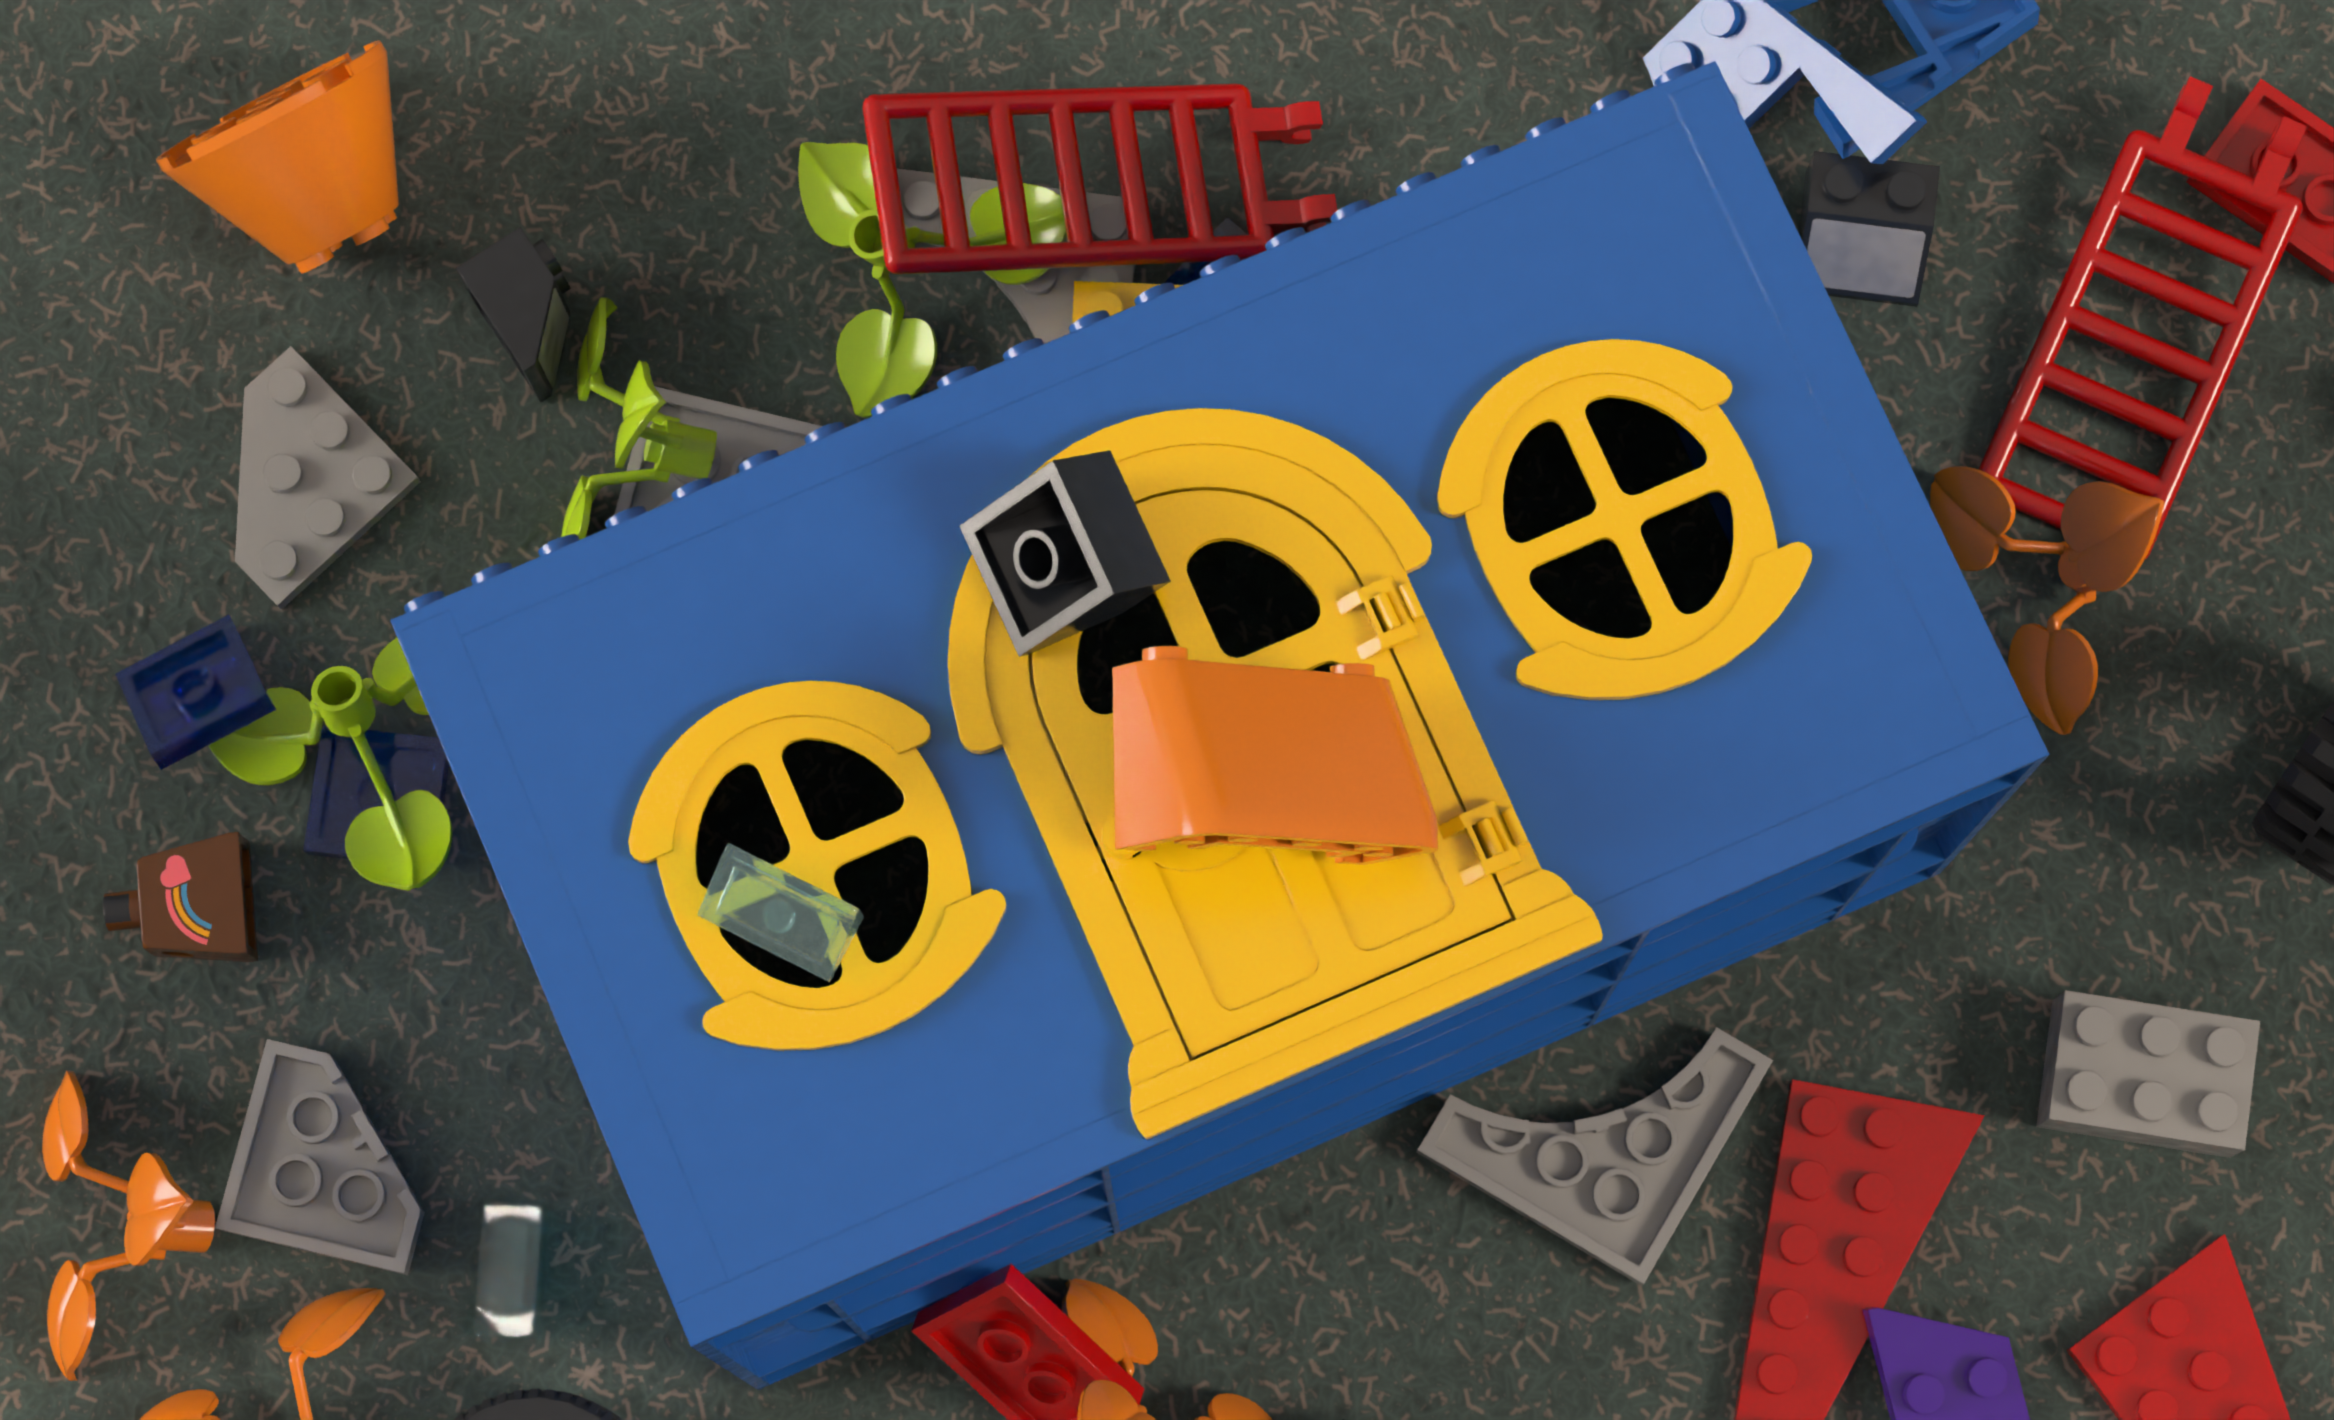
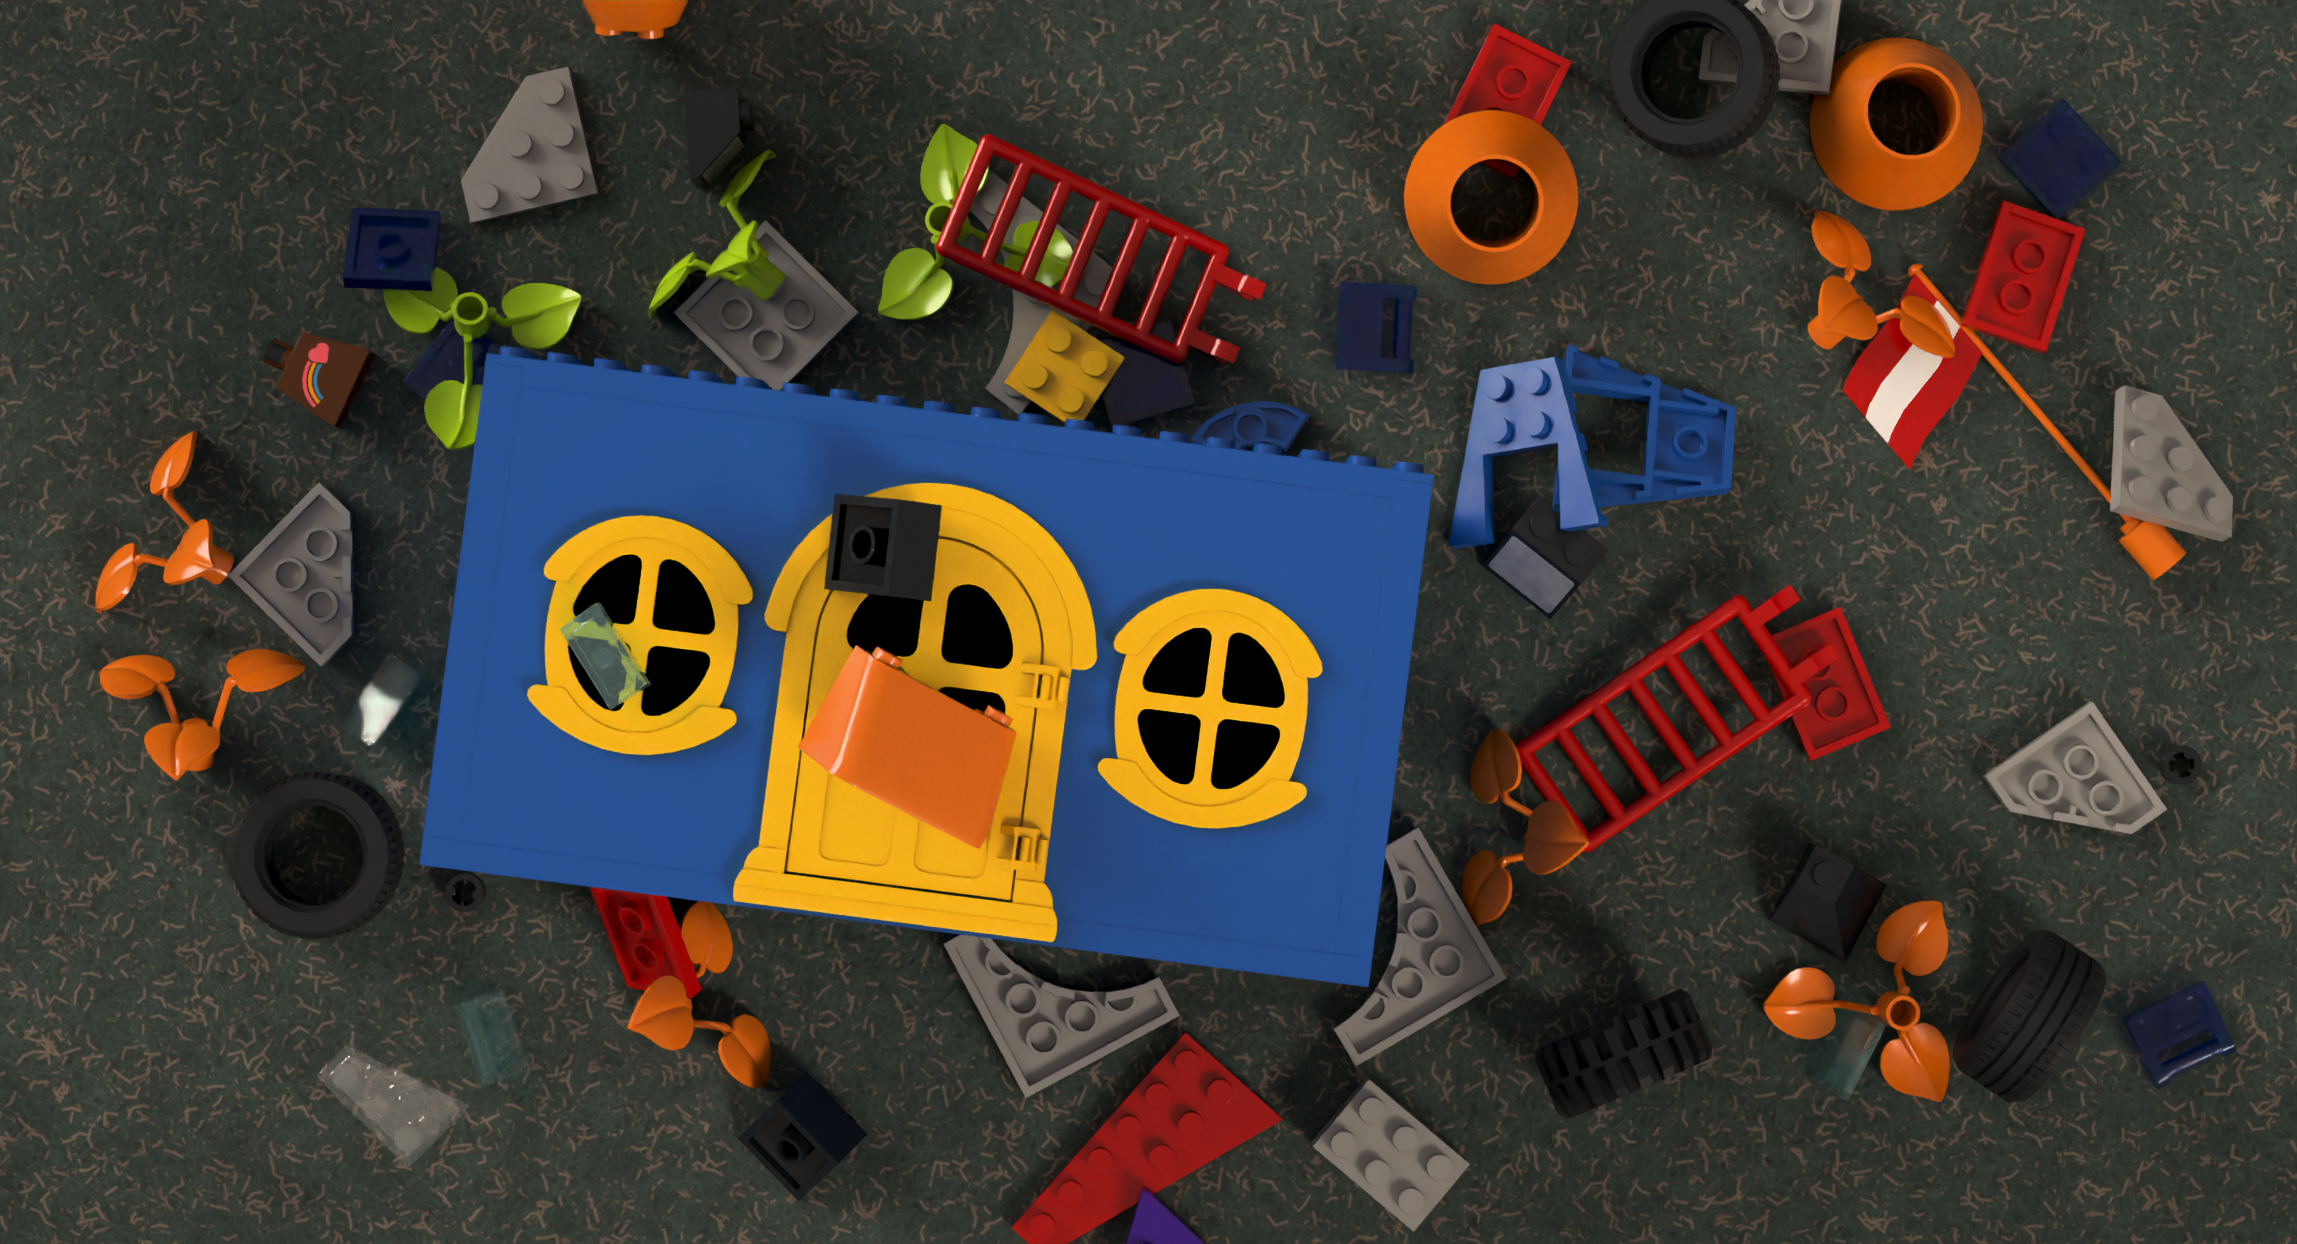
camera: 30 degrees right, 10 degrees up
(1465, 88) = (1361, 326): none -> clear blue plate
(2050, 847) = (1434, 960): none -> light grey plate

